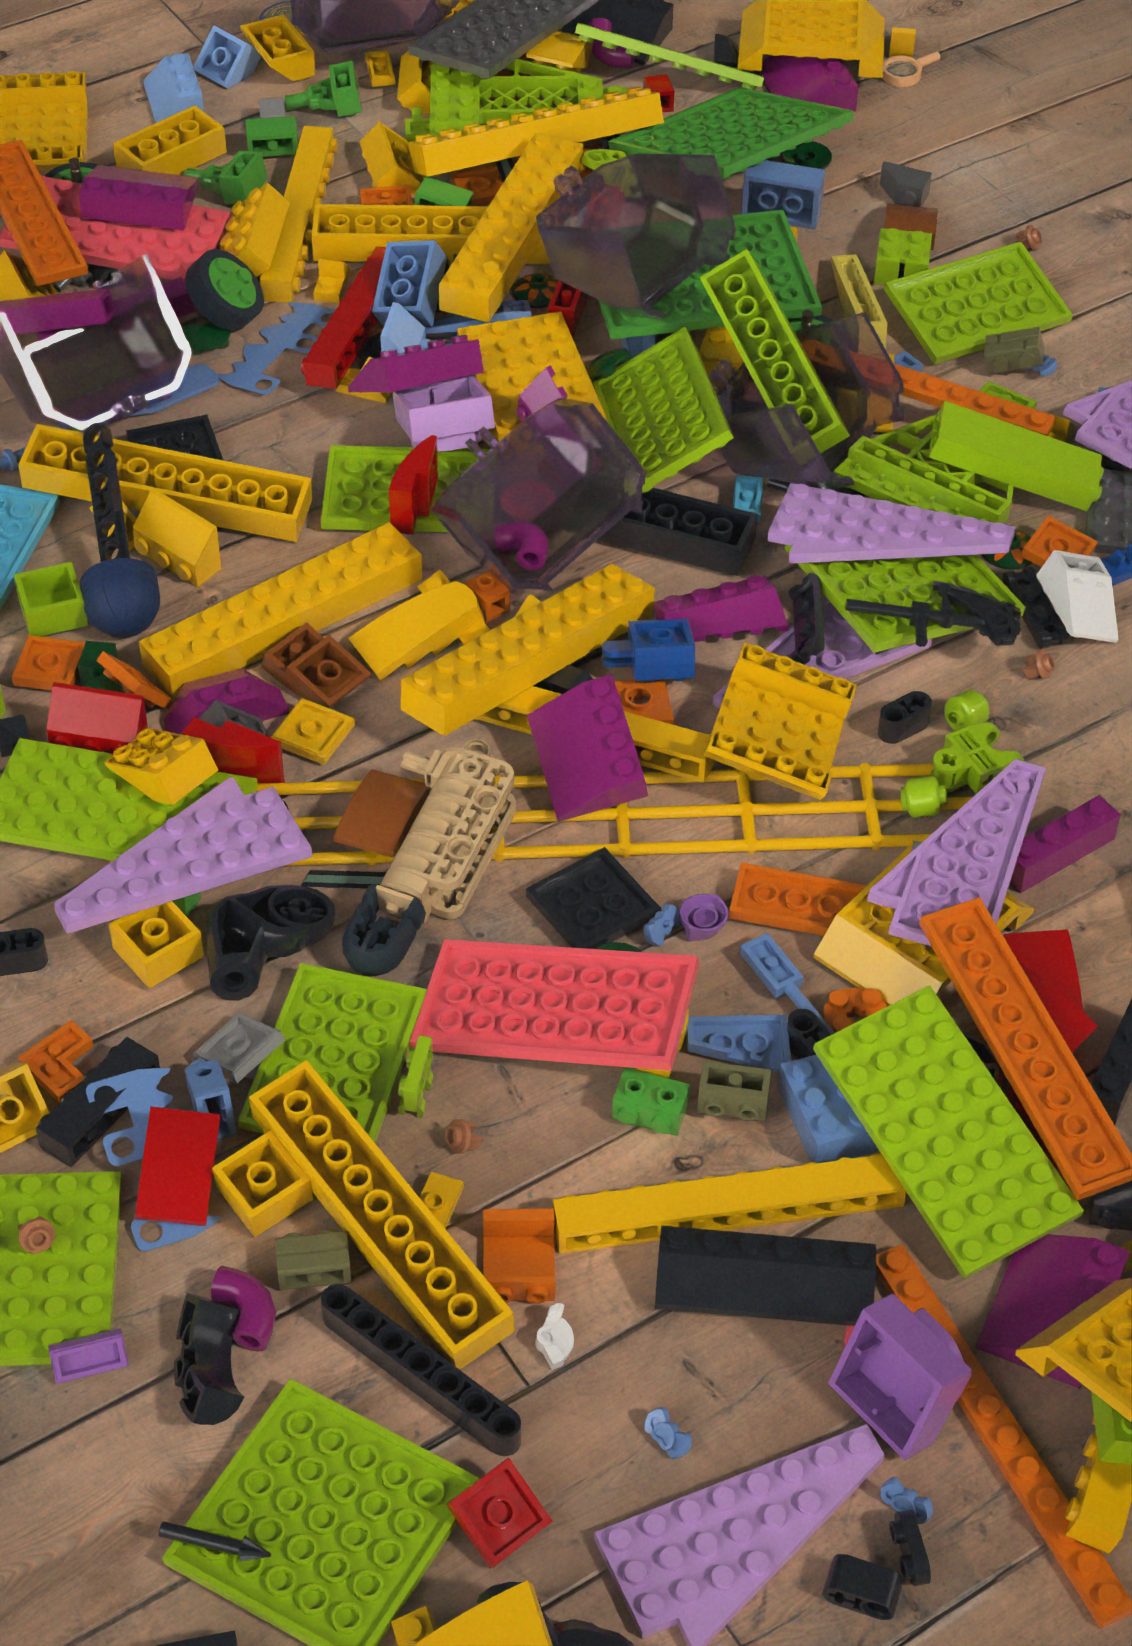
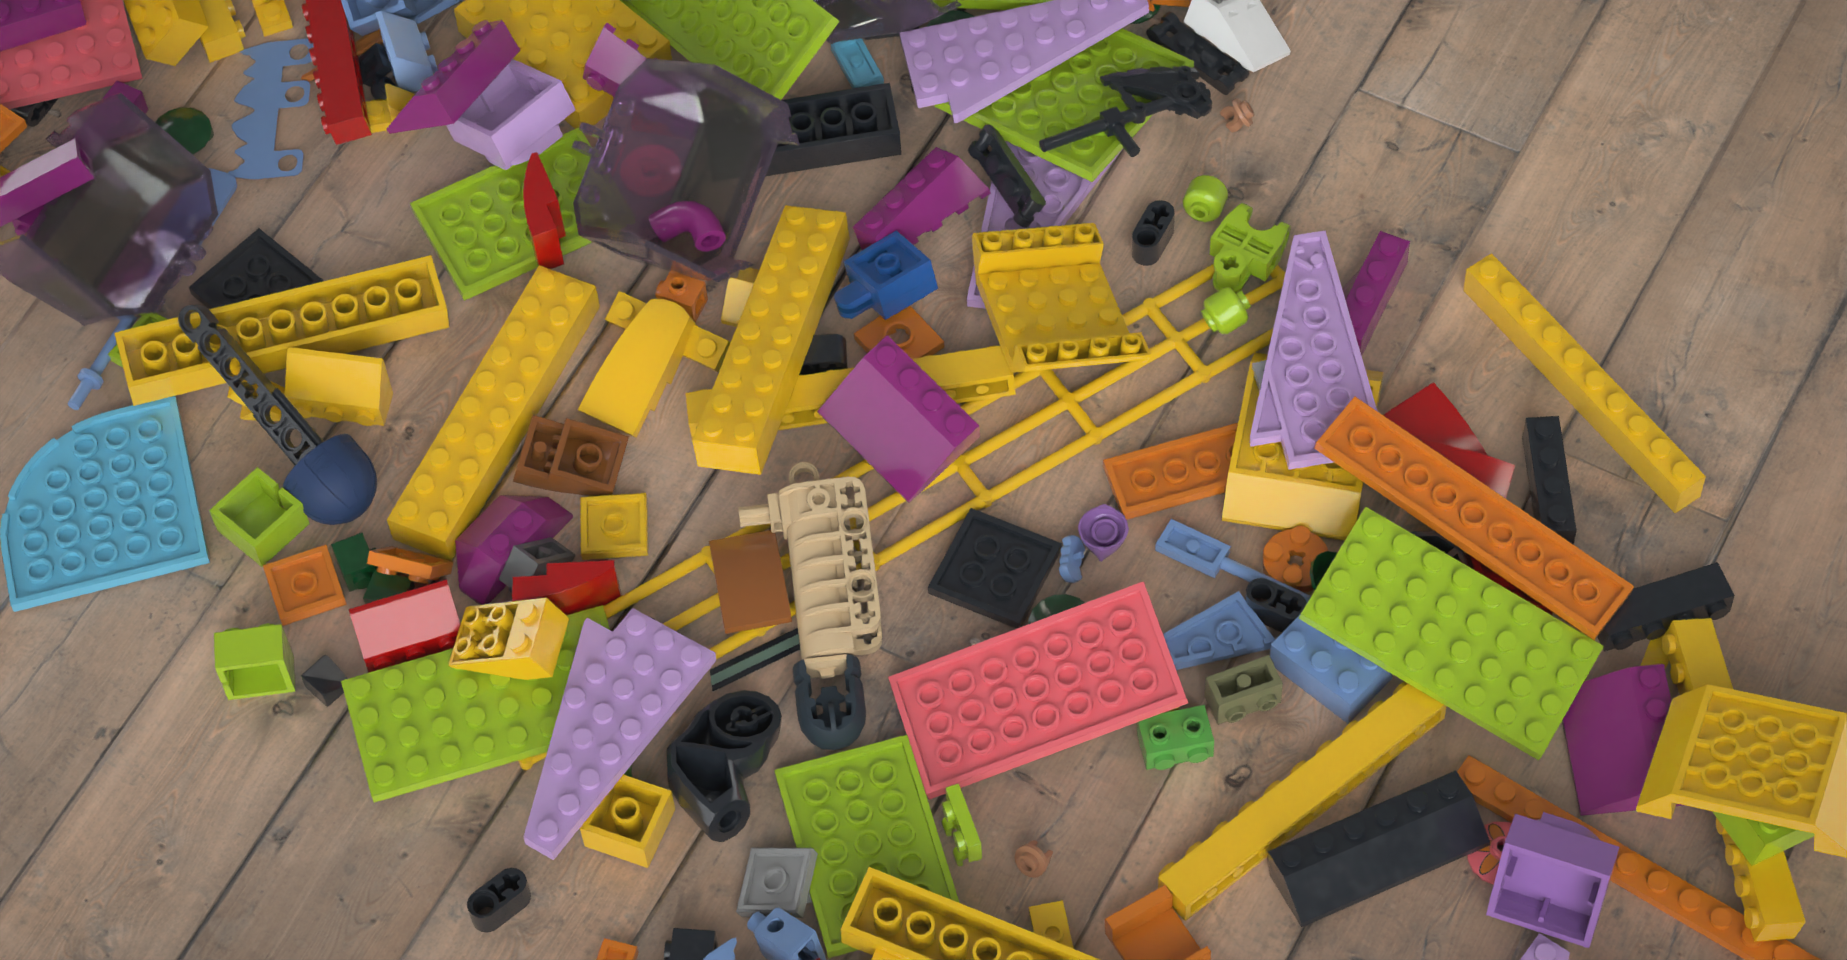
camera: 25 degrees left, 10 degrees up
(224, 290) = (179, 76): black wheel -> none

